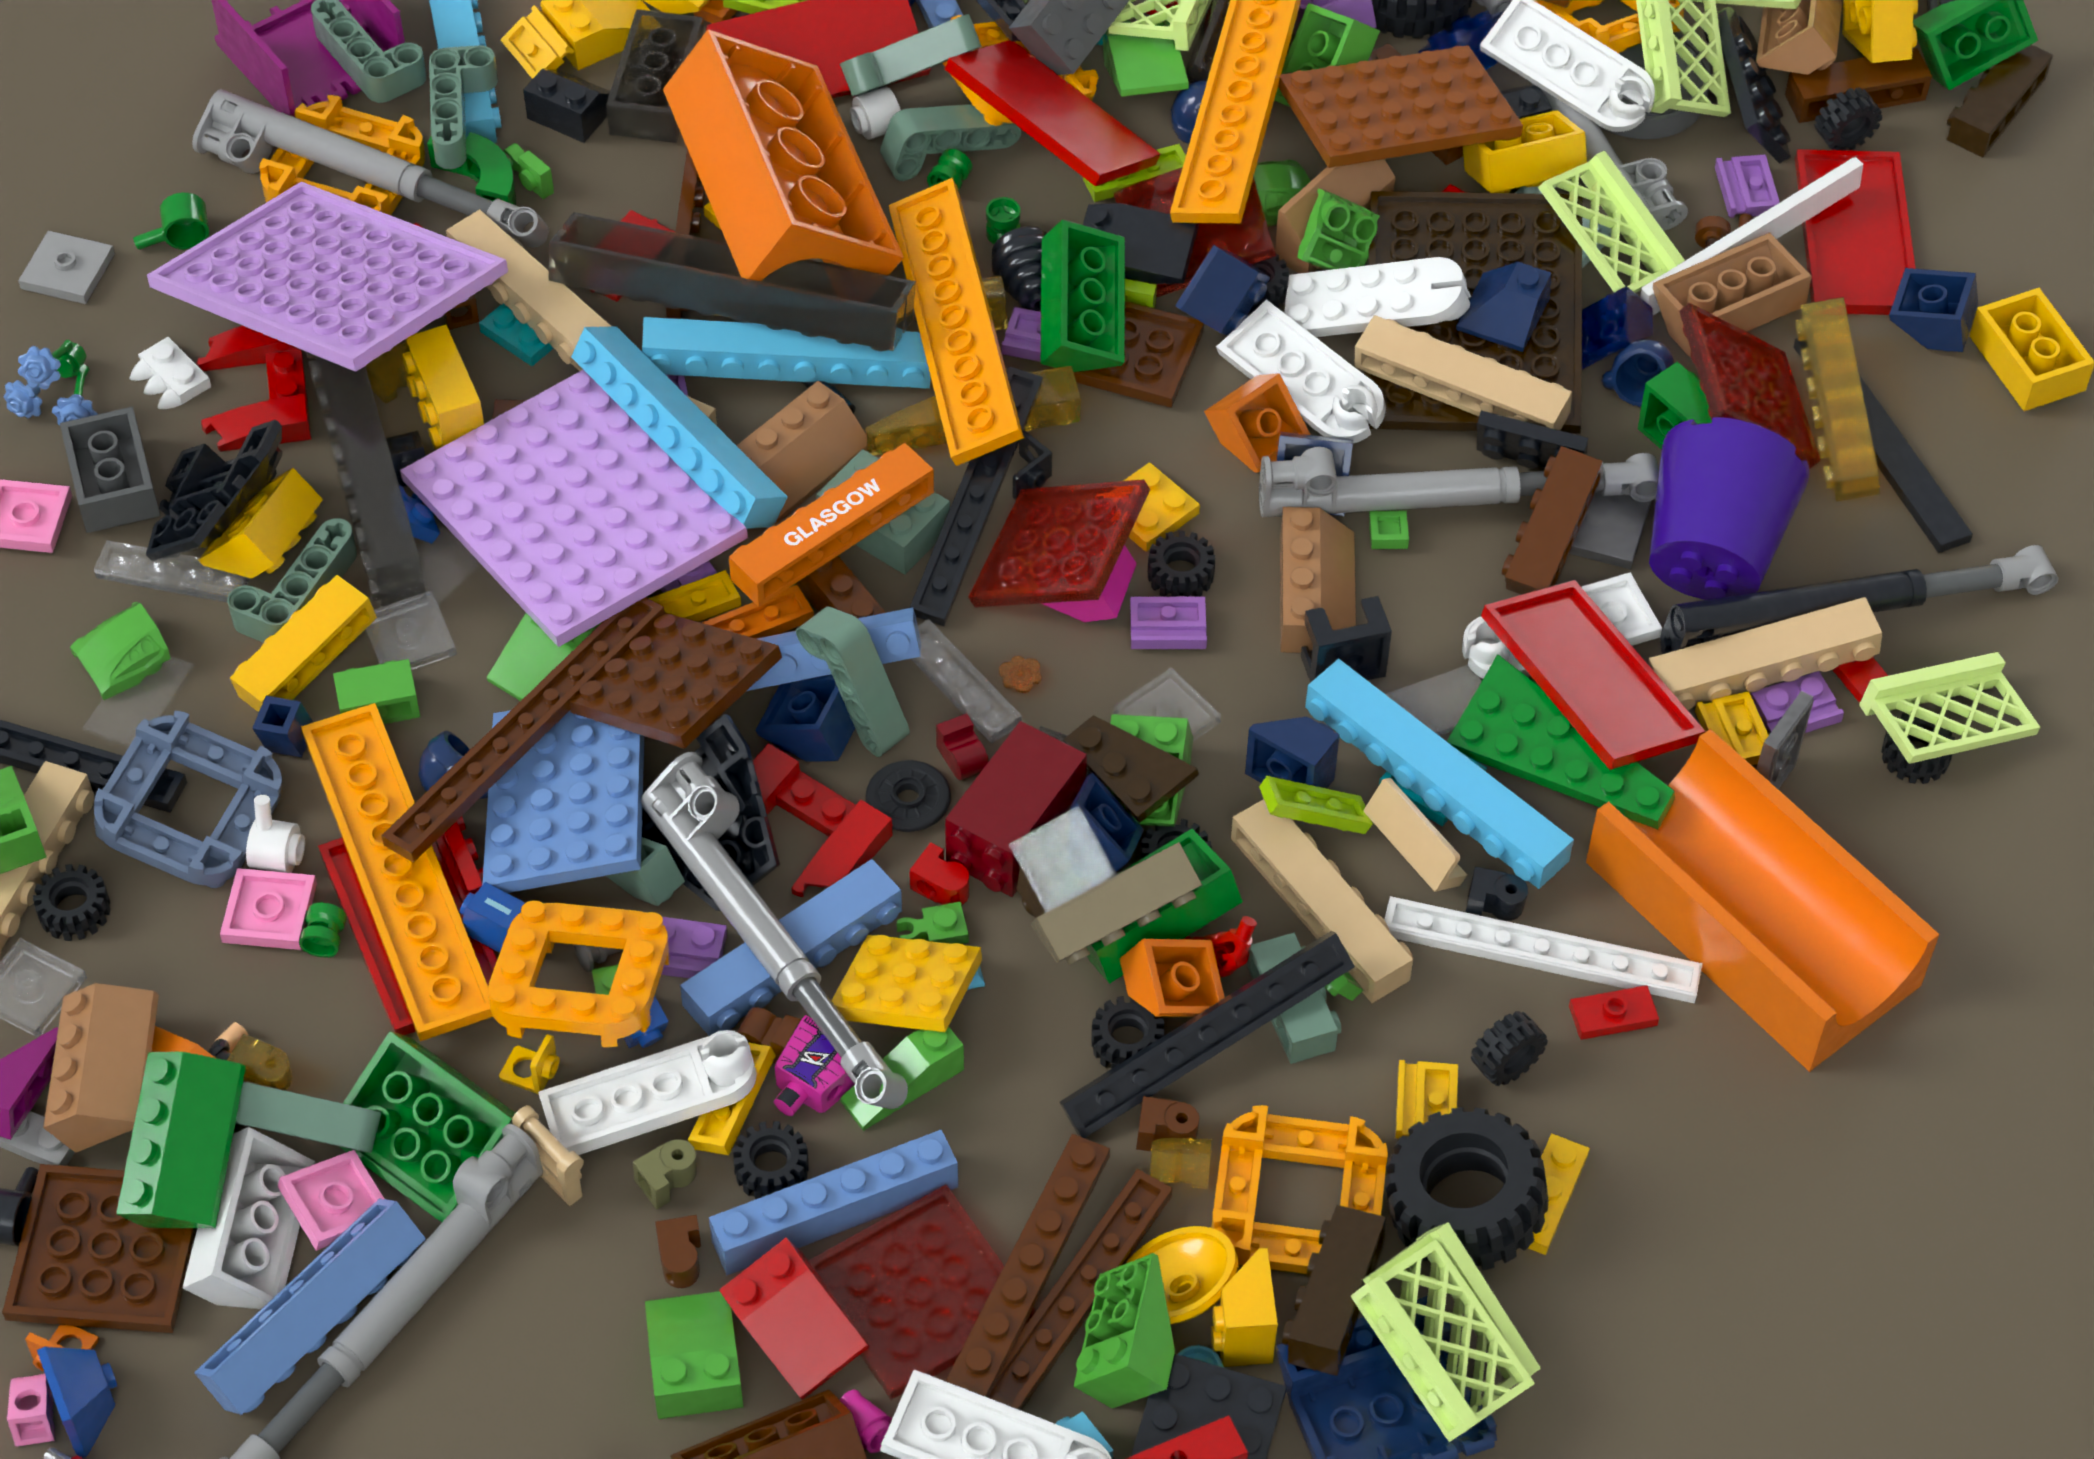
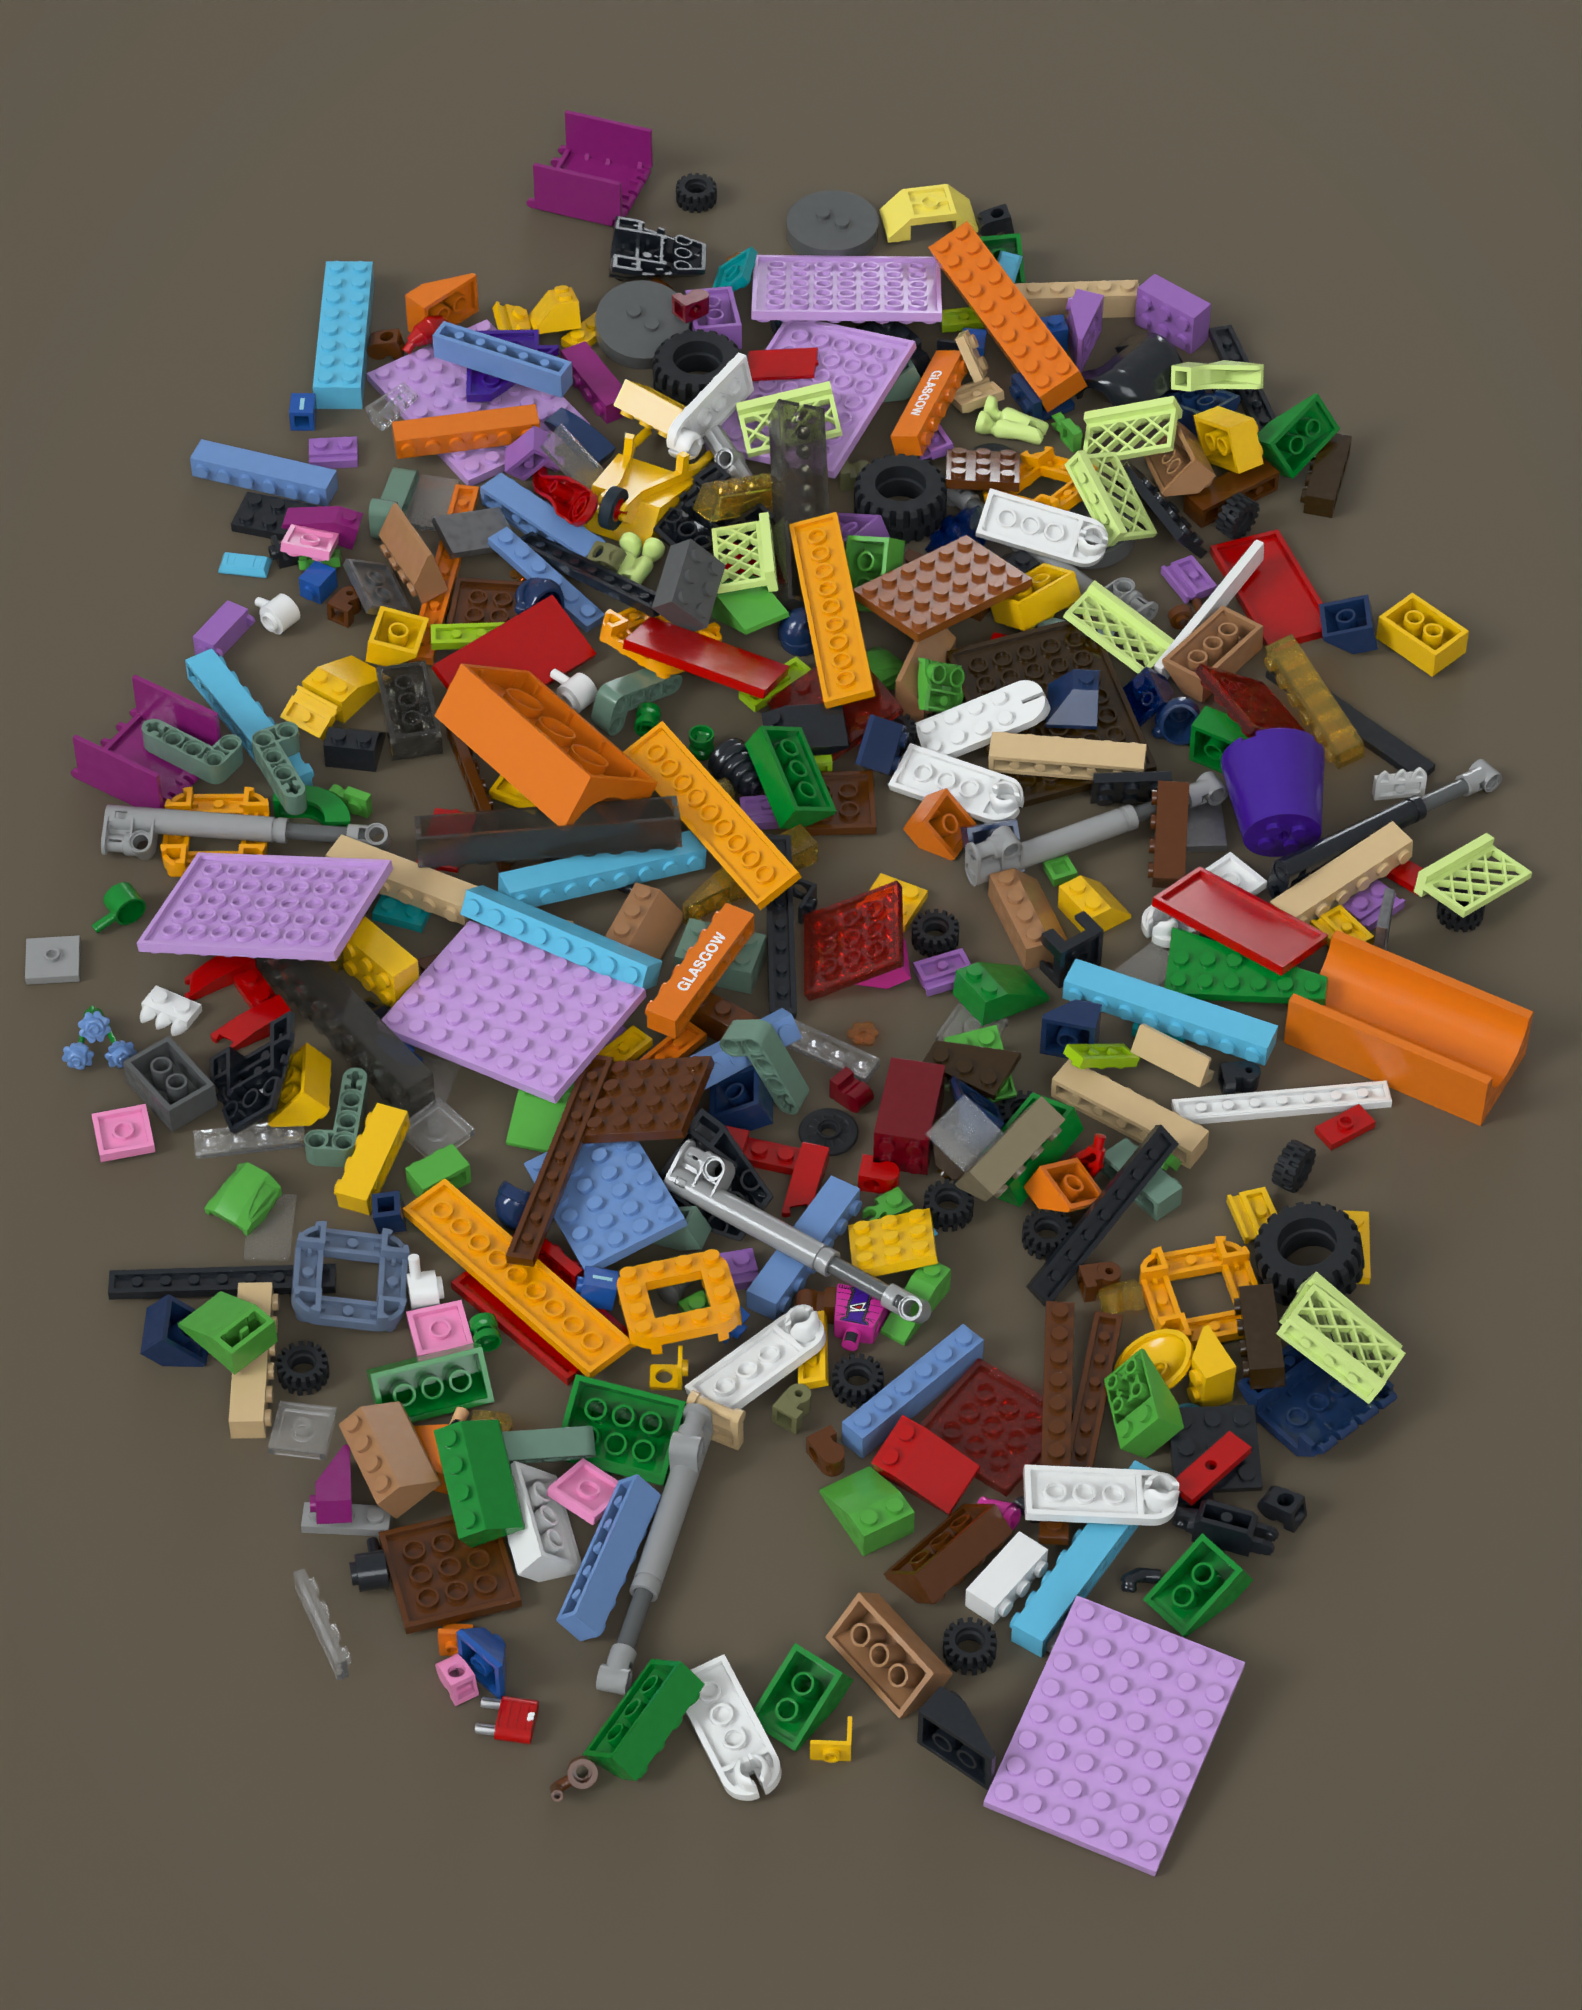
camera: 20 degrees left, 5 degrees down
(219, 978) = (434, 1382): none -> green slope
(910, 55) = (593, 645): beam -> none
(1008, 968) = (948, 1217): none -> black tyre
(1223, 669) = (996, 991): none -> green slope
(1409, 589) = (1093, 898): none -> yellow slope
(1908, 547) = (1399, 784): none -> white plate

